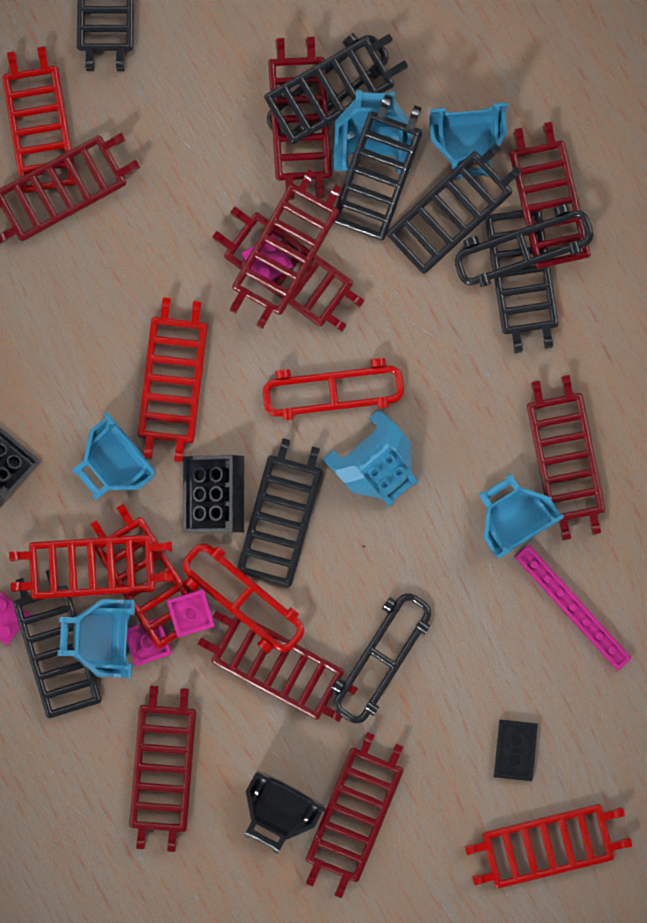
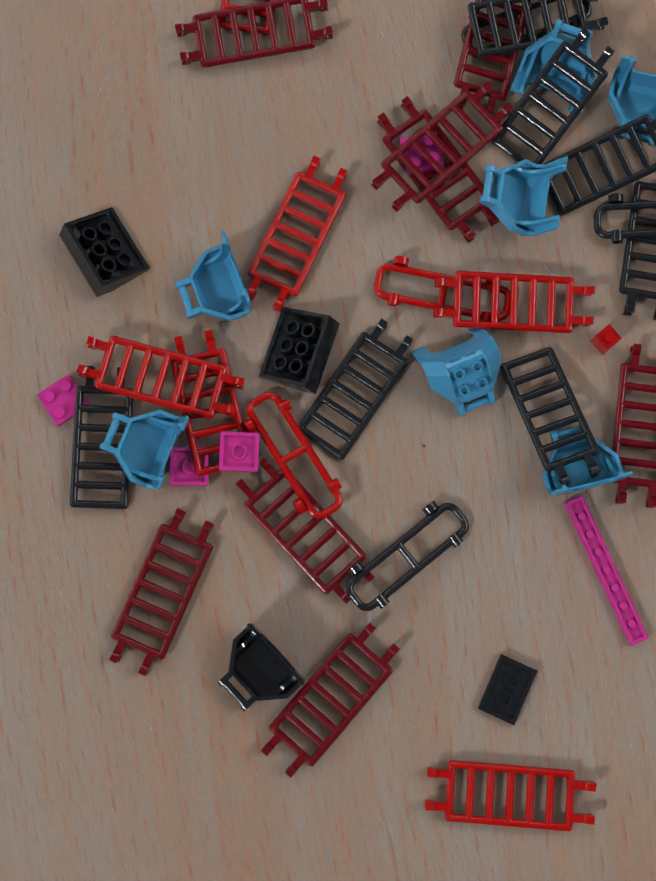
camera: 20 degrees right, 5 degrees down
(378, 273) = (521, 195): none -> dark azure piece
(410, 401) = (571, 290): none -> red bar
(489, 458) = (534, 433): none -> black bar
(504, 386) = (606, 339): none -> red brick

